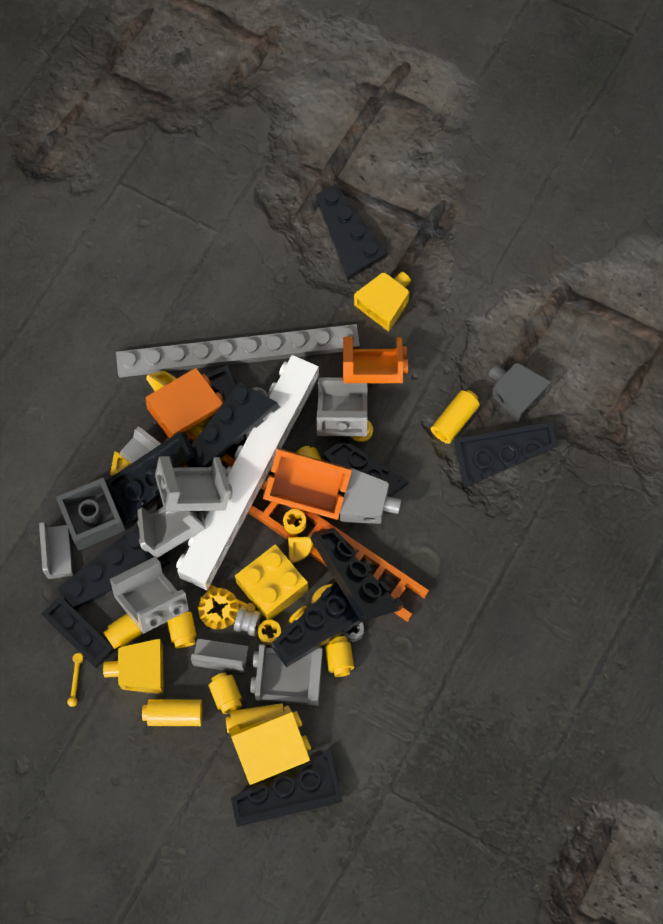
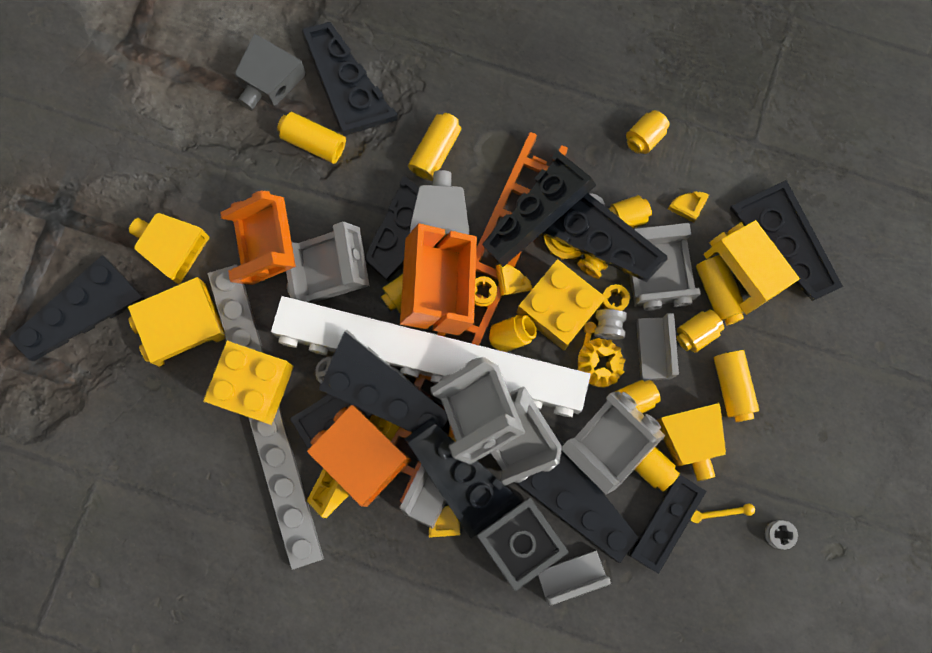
camera: 105 degrees left, 10 degrees up
(41, 715) = (776, 542): none -> light grey bush
(256, 539) = (512, 333): none -> yellow brick
(258, 337) = (249, 382): none -> yellow brick
(321, 297) = (175, 321): none -> yellow panel
(339, 714) = (689, 205): none -> yellow tile
(410, 690) = (647, 132): none -> yellow brick
(429, 510) = (435, 146): none -> yellow brick

